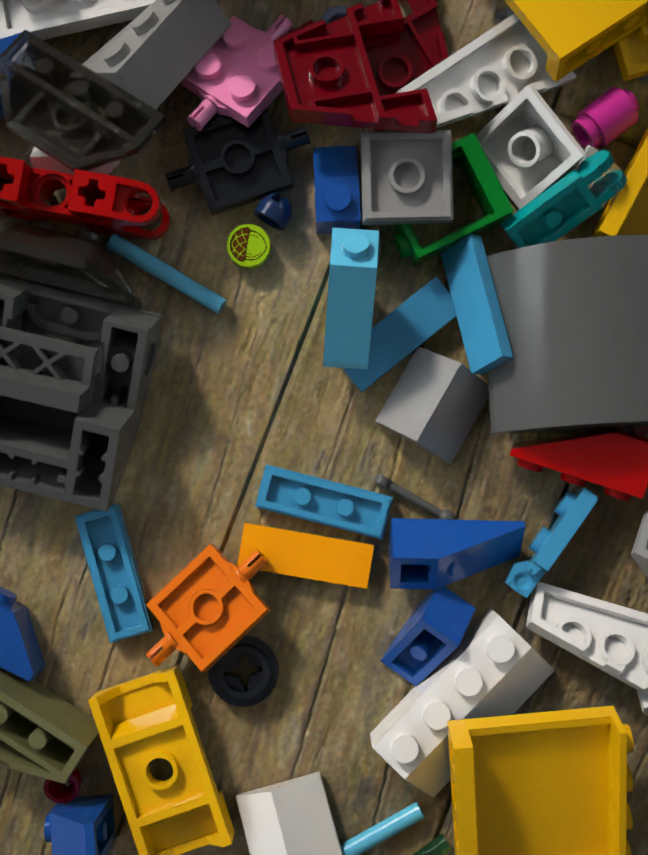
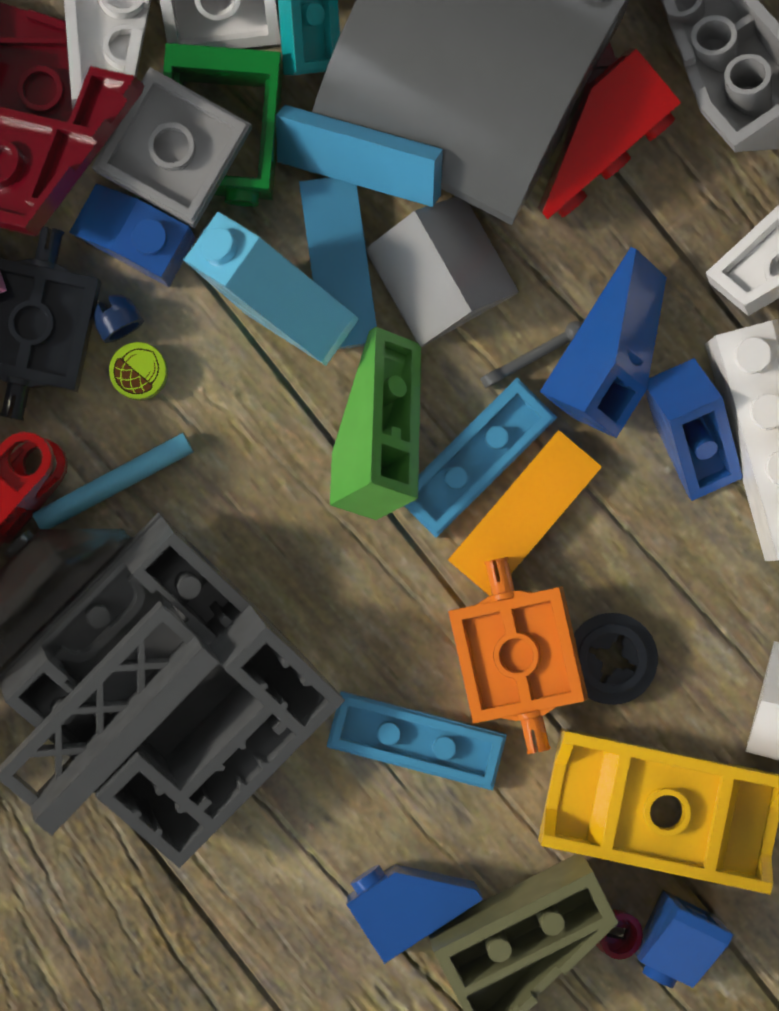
camera: 60 degrees left, 0 degrees up
(302, 427) = (379, 433): none -> bright green slope
(550, 543) = (671, 235): dark azure hinge -> none

